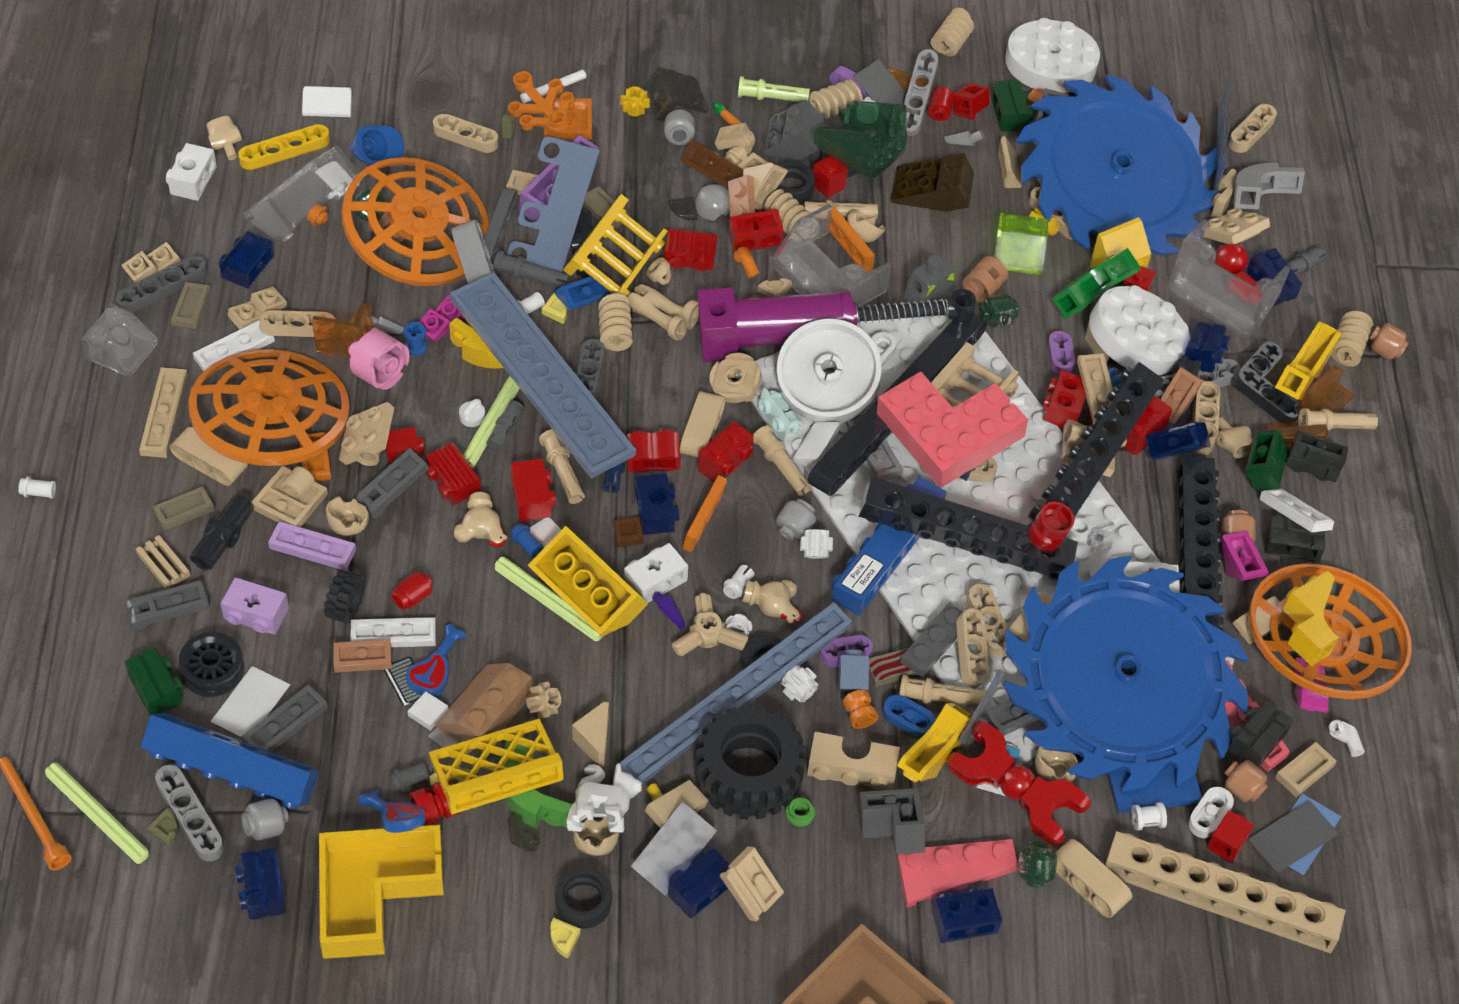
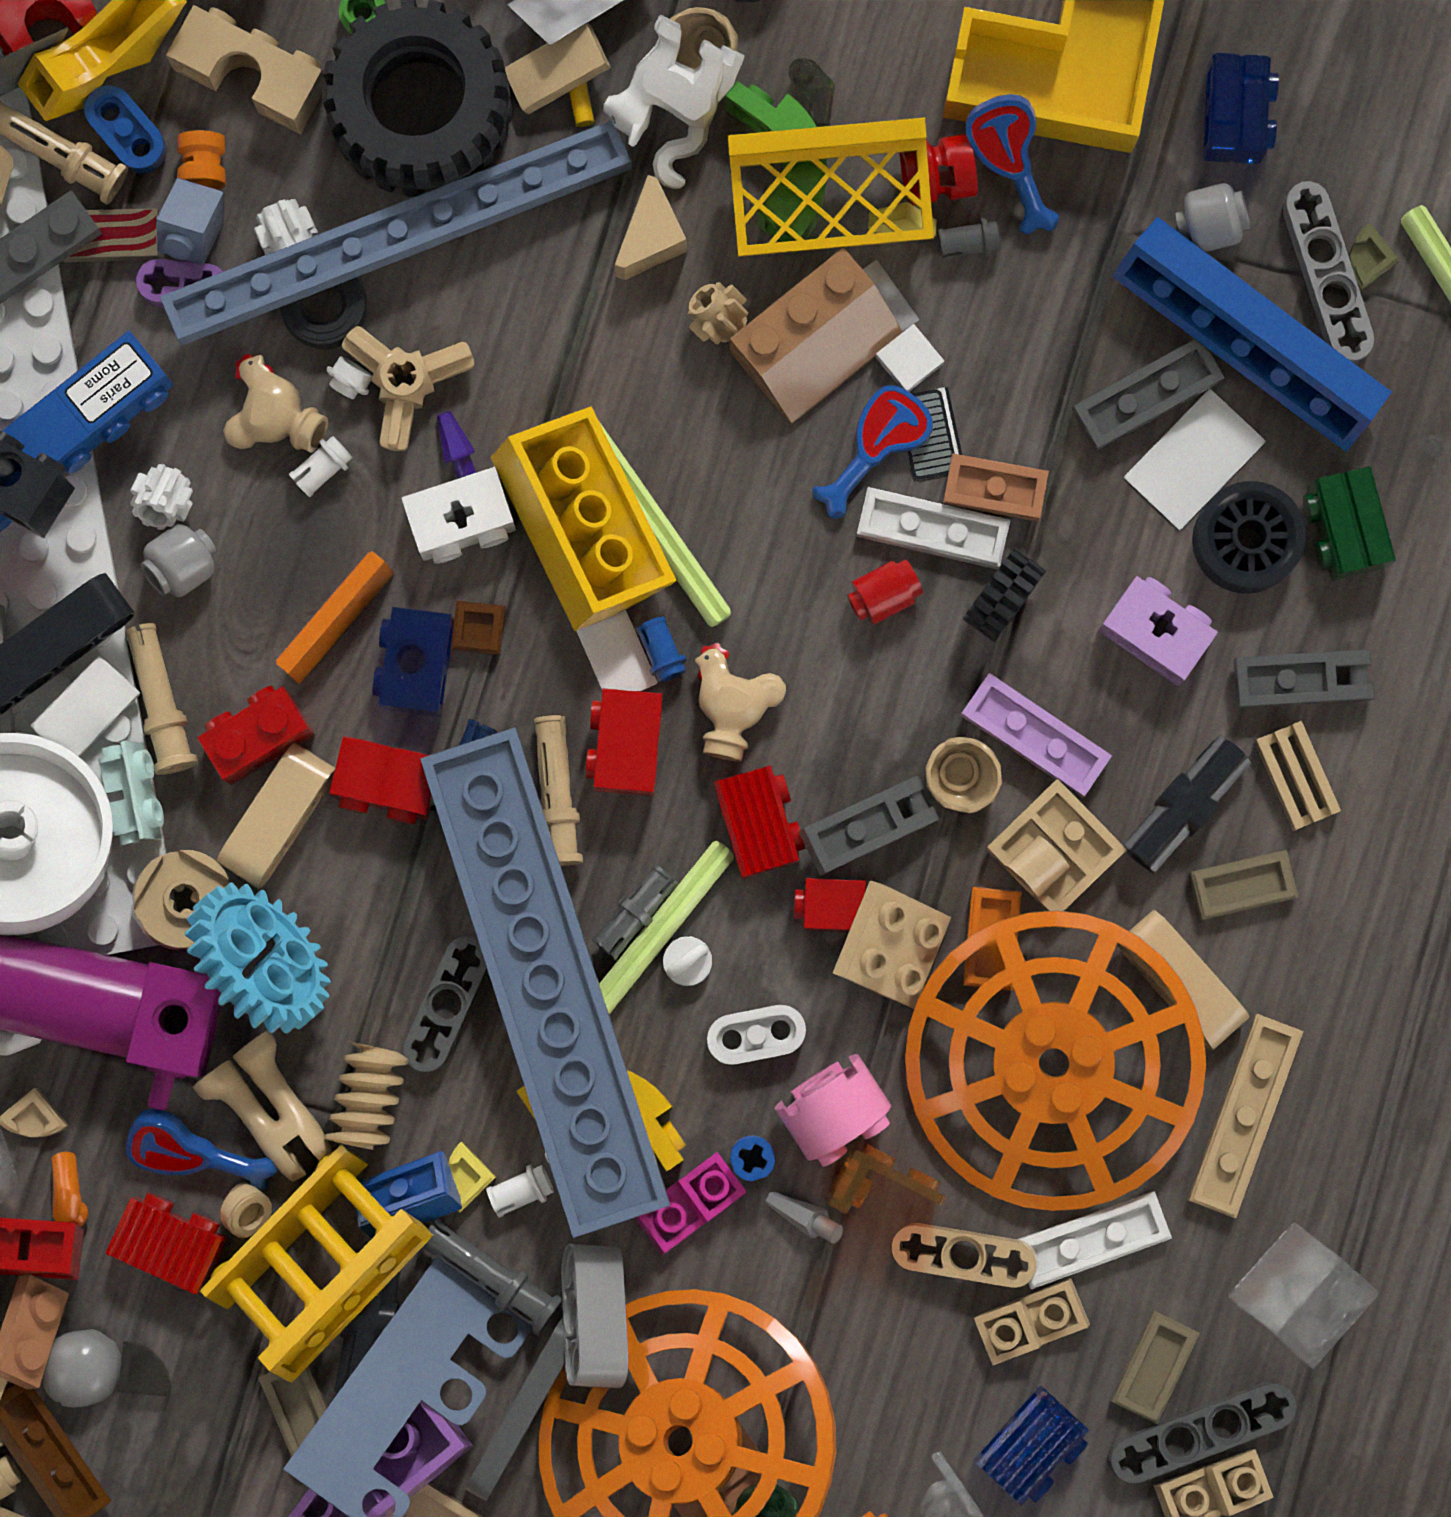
camera: 160 degrees left, 30 degrees up
(426, 390) = (756, 1034): none -> white plate
(687, 350) = (284, 984): none -> medium azure gear
(689, 285) = (167, 1147): none -> blue piece

